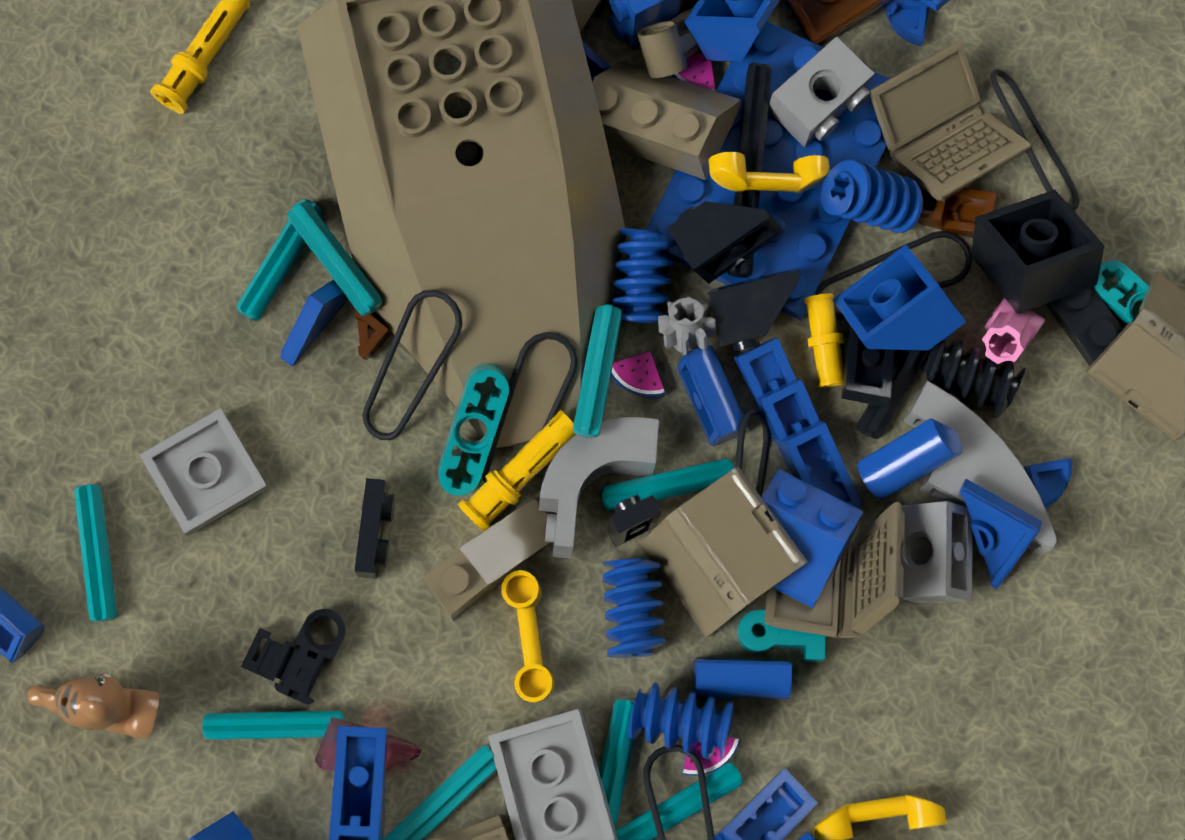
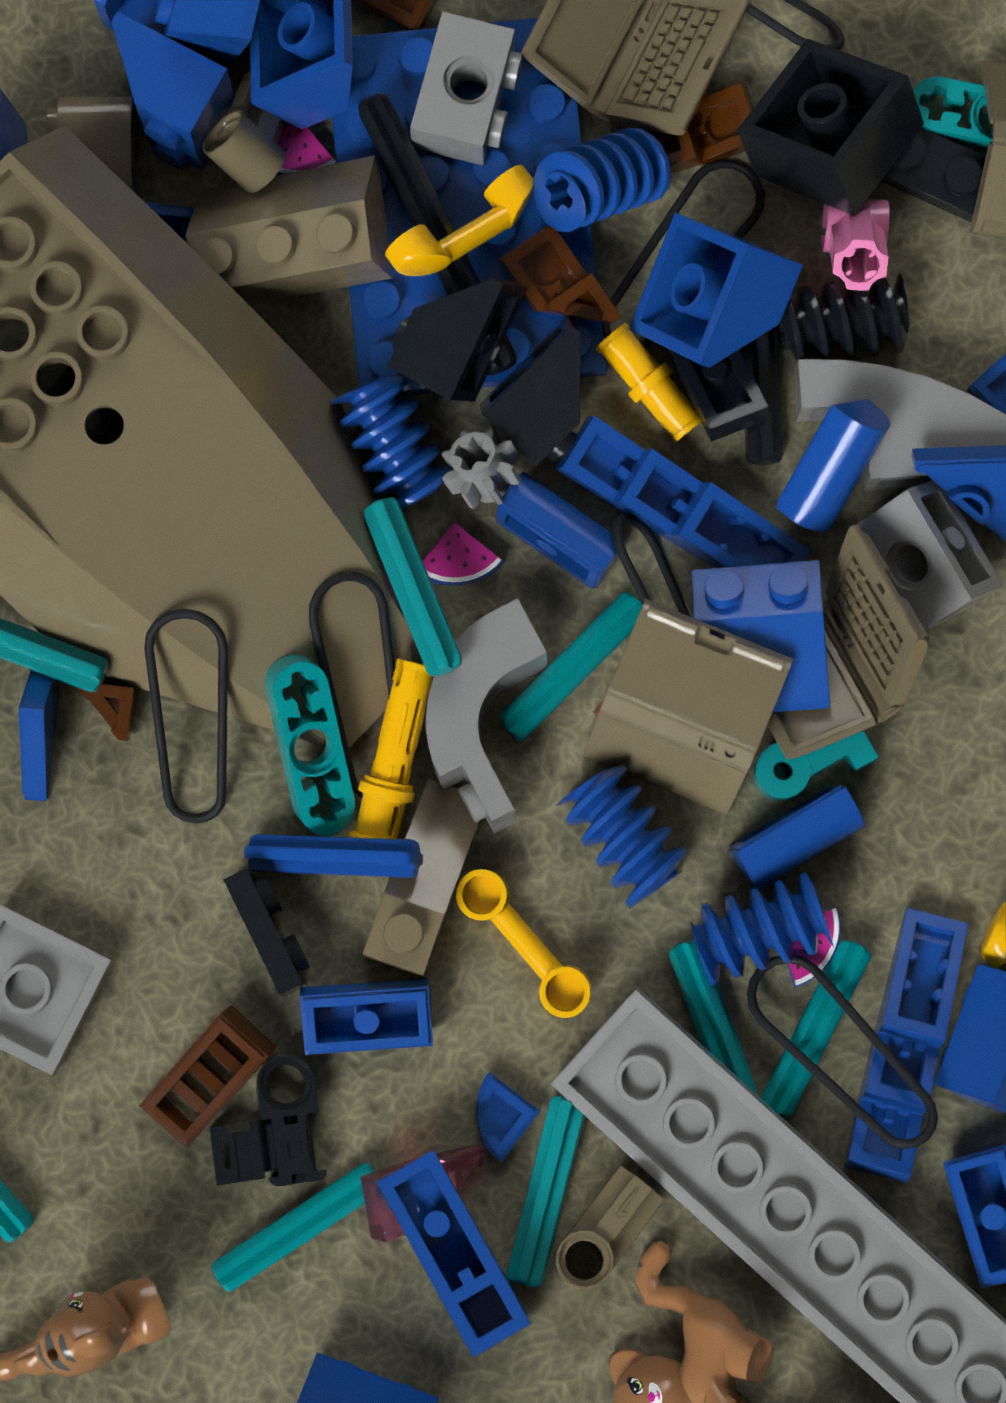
camera: 25 degrees left, 5 degrees up
(318, 587) = (244, 1036): none -> reddish brown slope
(400, 620) = (366, 1016): none -> blue brick
(444, 507) = (334, 855): none -> blue axle
(445, 737) = (502, 1116): none -> blue tile
(633, 518) = (560, 732): black plate -> none
(806, 241) = (556, 279): none -> reddish brown slope

